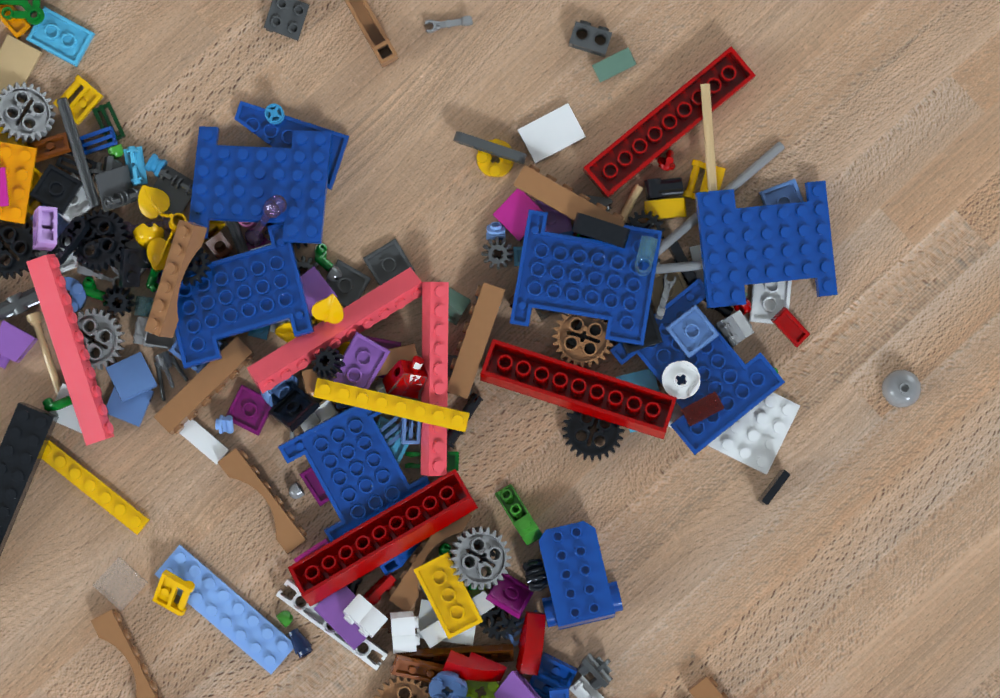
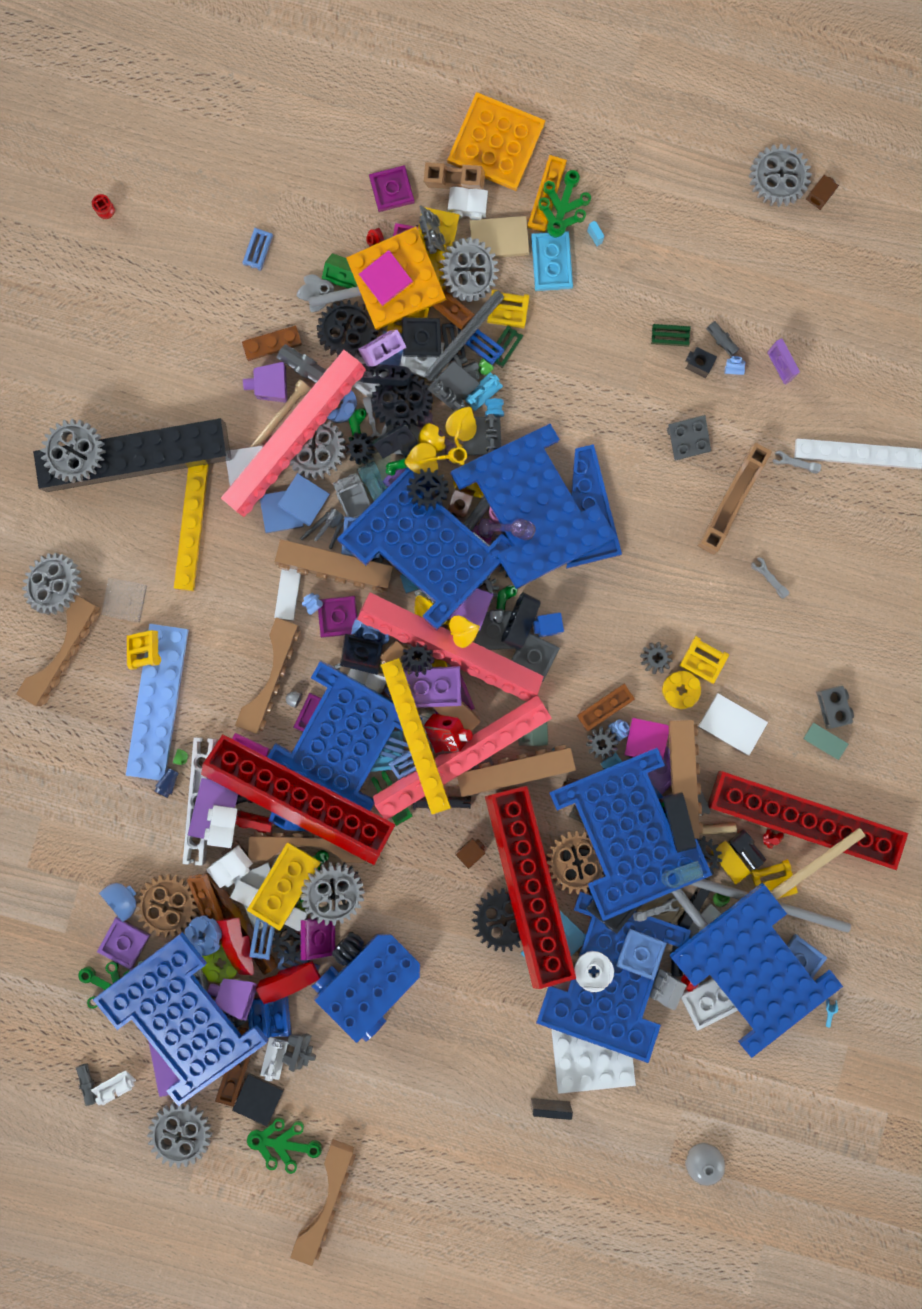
camera: 55 degrees right, 0 degrees up
(49, 405) = (239, 452): green arm -> none
(67, 635) = (46, 581): none -> light grey gear
(185, 244) = (443, 473): medium nougat arch -> none
(271, 112) = (601, 475): dark azure wheel -> none
(351, 257) = (520, 621): none -> black beam
(369, 235) = (548, 625): none -> blue brick
(453, 155) = (659, 664): none -> dark grey gear
(469, 231) = (605, 707): none -> dark orange plate
(485, 128) = (701, 665): none -> yellow plate
(489, 147) = (688, 680): dark grey beam -> none
(493, 651) = (260, 955): none -> medium blue tile
(519, 514) = (391, 901): bright green slope -> none
(520, 421) = (471, 852): none -> reddish brown brick
(691, 236) = (718, 900): none -> bright green hinge
(702, 409) = (580, 1006): clear red plate -> none
(790, 327) = (697, 1034): red tile -> none
(840, 203) = (831, 1009): none -> medium azure hand

